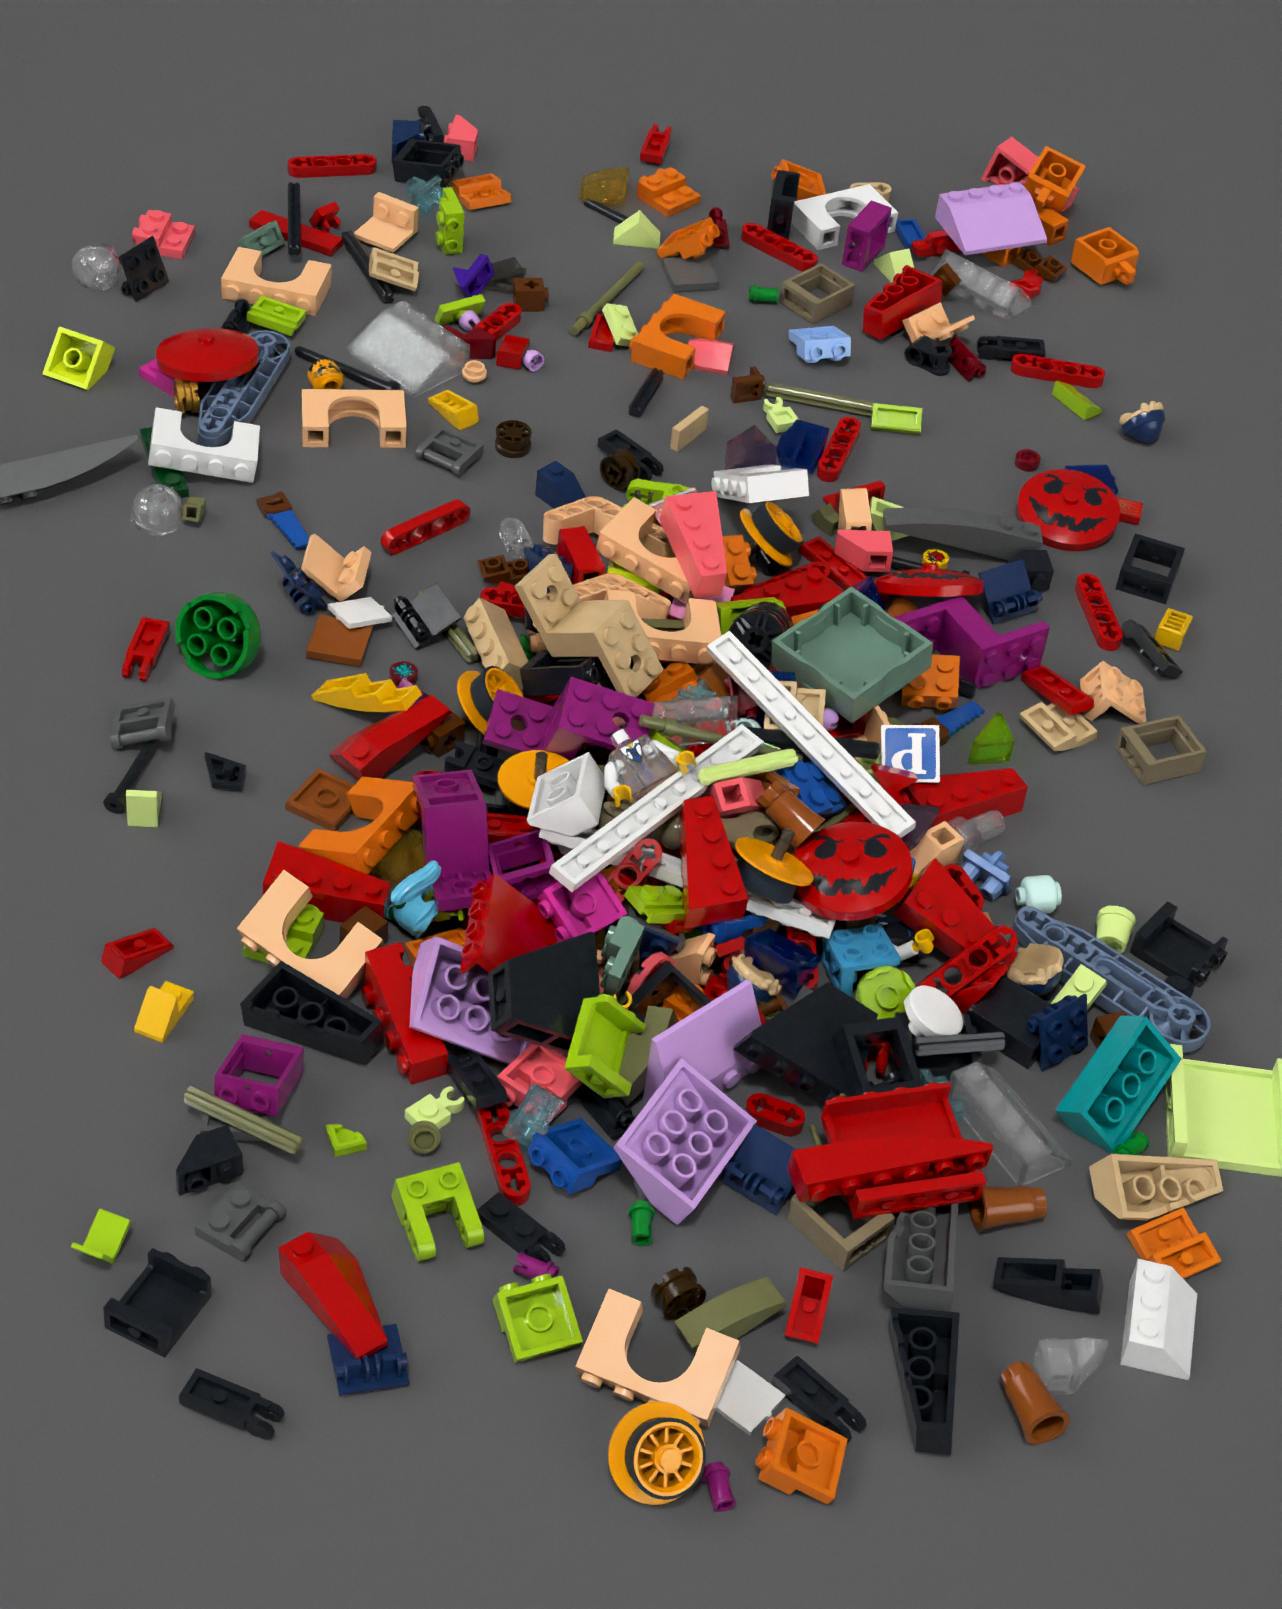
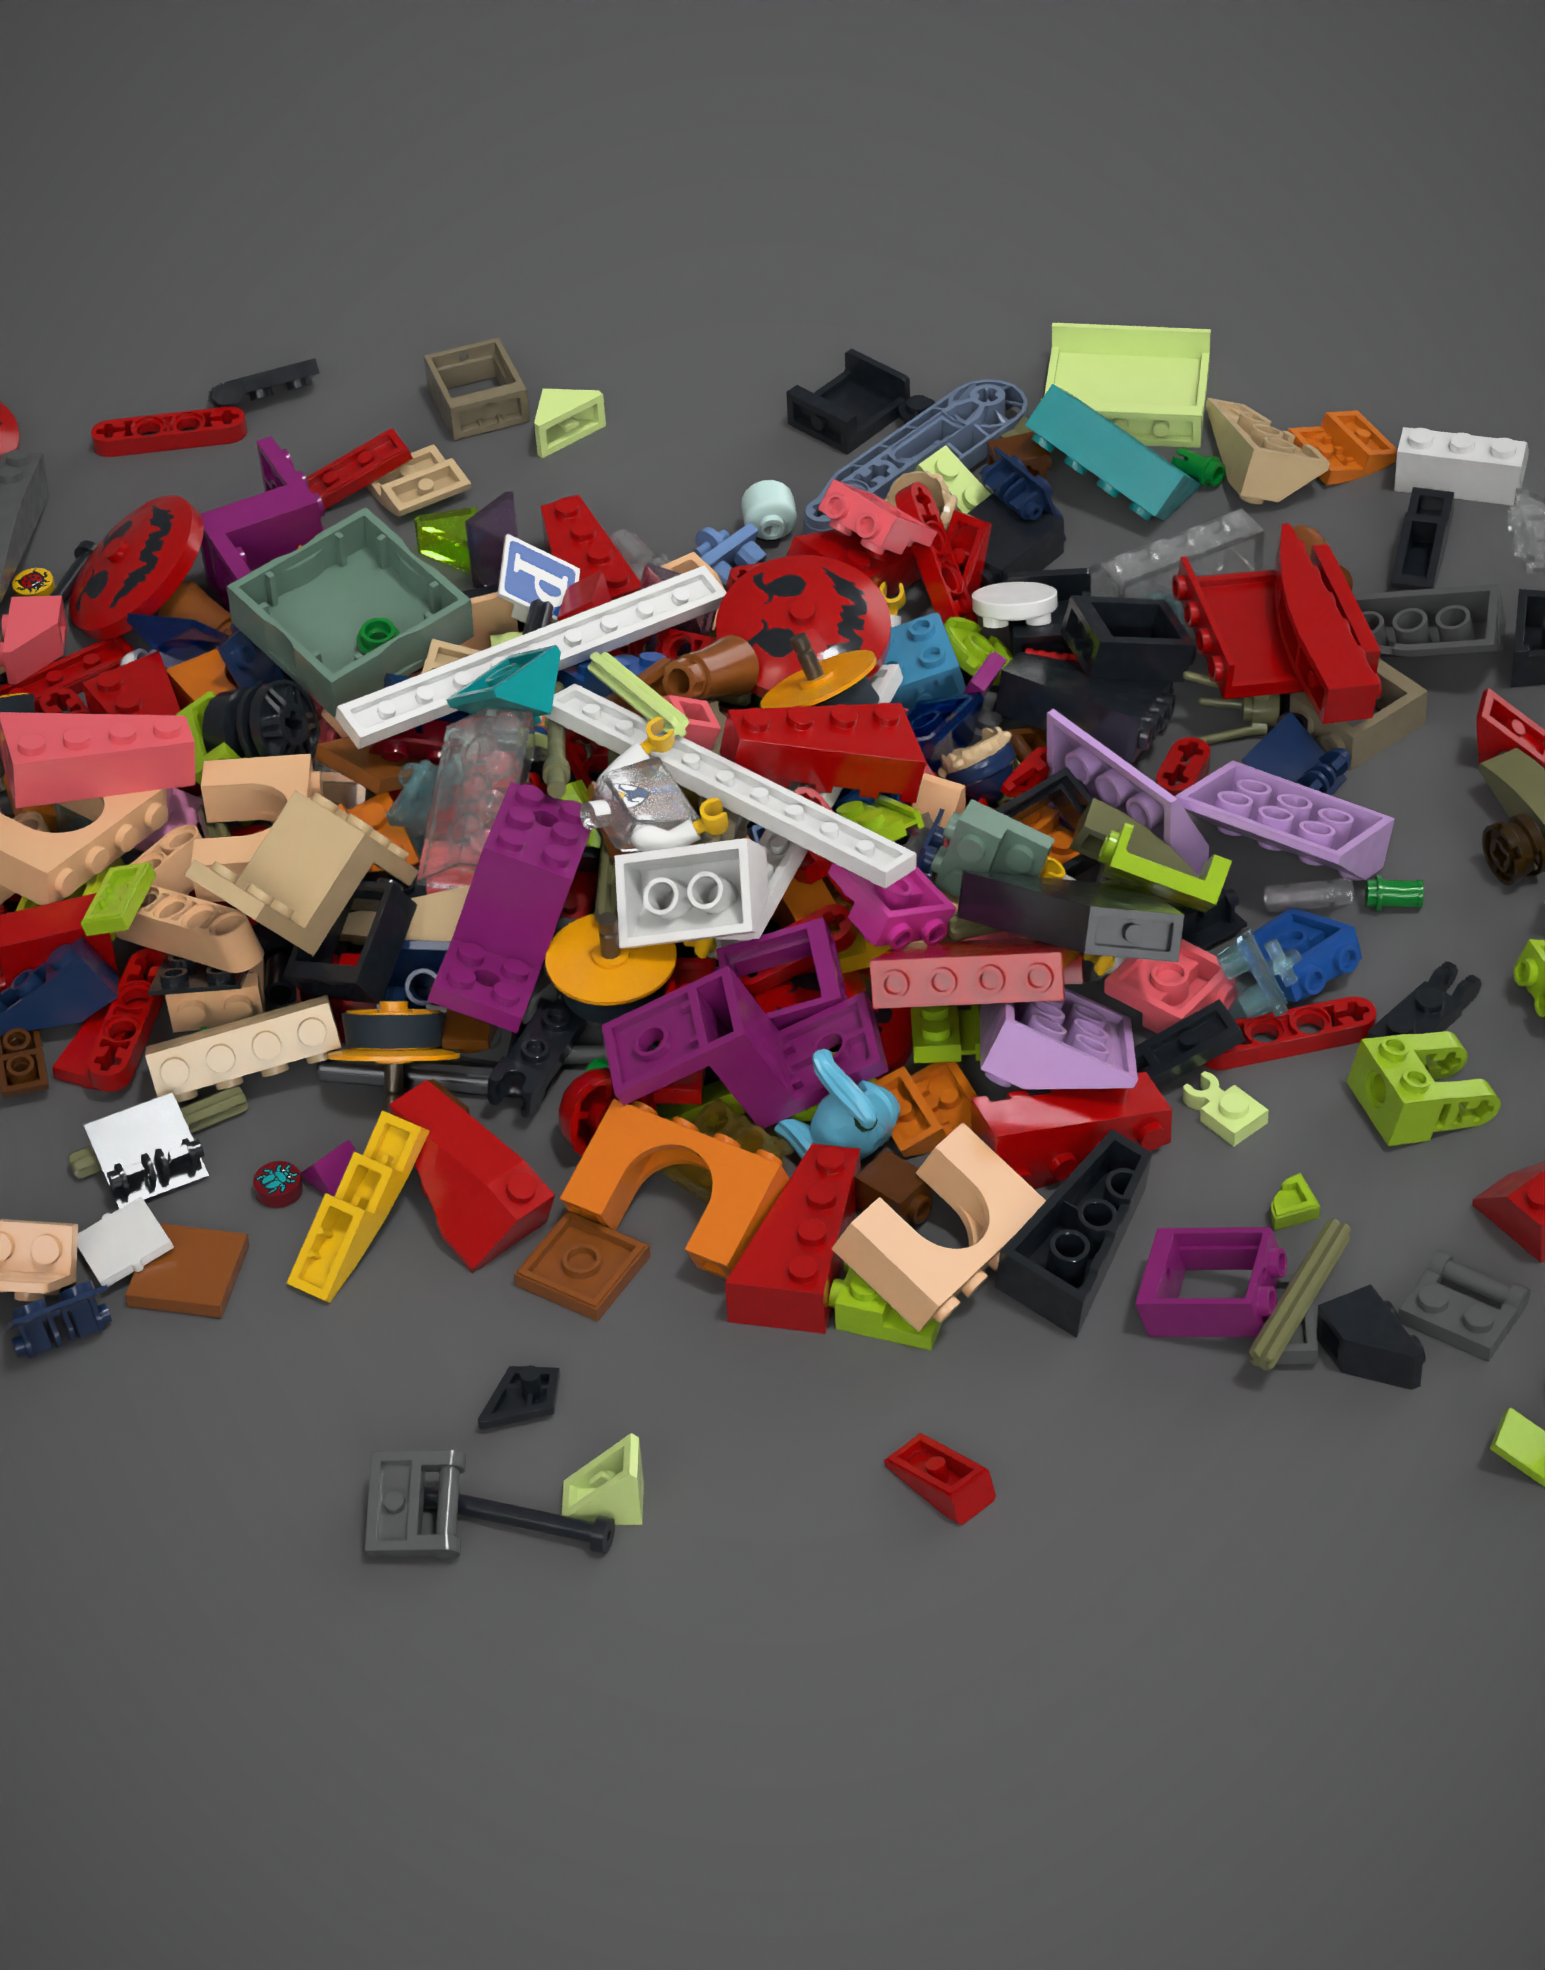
camera: 80 degrees left, 0 degrees up
(145, 646) = (201, 1530): red hinge -> none
(162, 1010) = (1070, 1428): yellow slope -> none
(218, 626) = (194, 1390): green cylinder -> none
(424, 1137) = (1285, 1108): olive plate -> none
(533, 1267) = (1495, 985): magenta pin -> none
(590, 569) = (118, 899): none -> lime plate
(748, 706) = (516, 683): none -> teal slope
(818, 974) = (986, 674): none -> magenta tile
(832, 667) = (375, 633): none -> green plate
(958, 1043) = (1069, 565): black axle -> none
(965, 904) = (873, 519): none -> coral plate
(970, 749) = (486, 538): none -> clear purple slope
(1009, 591) = (128, 497): dark blue hinge -> none
(1037, 567) = (83, 487): black slope -> none
(1113, 689) = (347, 425): light nougat bracket -> none
(1115, 926) = (826, 449): yellowish green piece -> none
(1132, 792) = (566, 418): none -> yellowish green slope
(1157, 585) = (99, 396): black window -> none
(1173, 629) = (211, 364): yellow slope -> none

